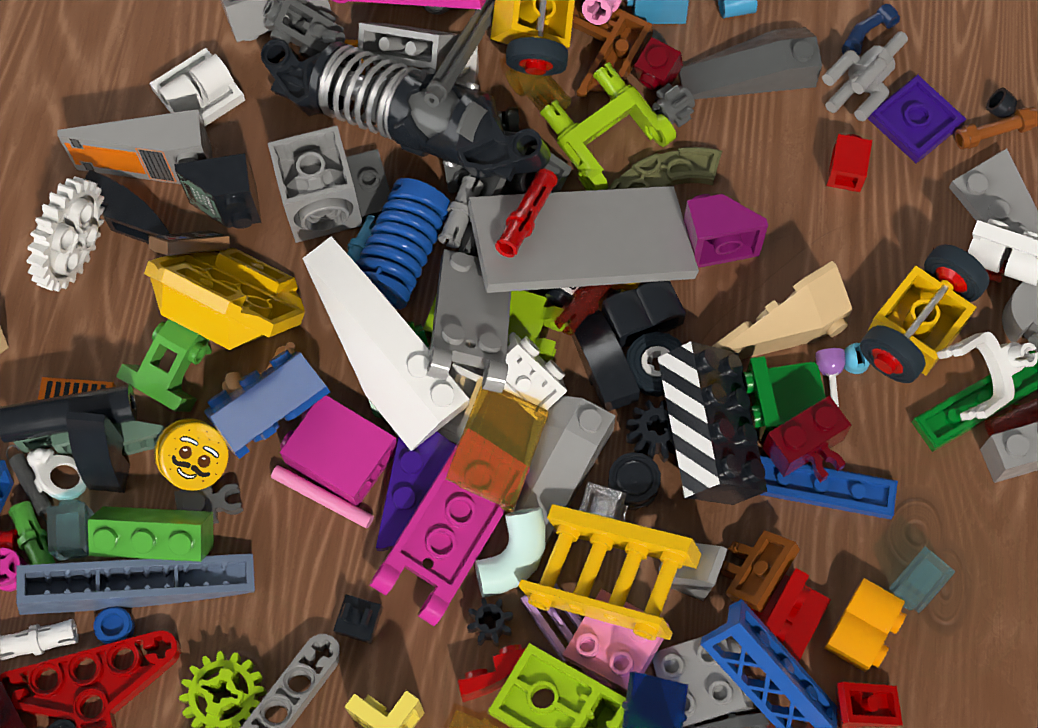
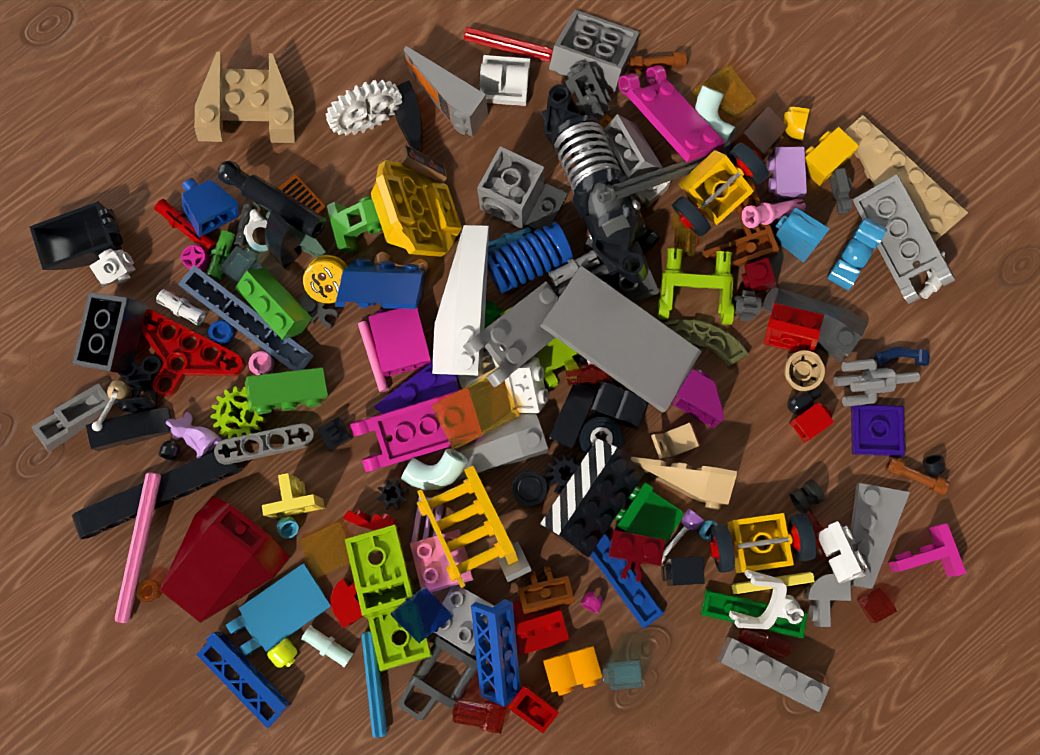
camera: 45 degrees right, 10 degrees up
(165, 54) = (508, 44): none -> red axle
(196, 618) = (261, 363): none -> bright pink tile
(222, 189) = (467, 149): black slope -> none
(258, 615) = (286, 390): none -> bright green brick
(521, 222) = (591, 304): red pin -> none
(604, 502) = (499, 488): clear tile -> none
(737, 294) = (676, 441): none -> tan bracket
(745, 87) = (793, 328): none -> red bracket
(790, 124) = (803, 371): none -> tan helmet
(815, 539) = (591, 603): none -> dark pink hinge
(819, 151) = (802, 401): none -> black cylinder
(878, 414) = (683, 571): none -> black brick
(917, 235) = (807, 496): none -> pearl dark grey wheel
(961, 363) = (788, 580): none -> light yellow tile

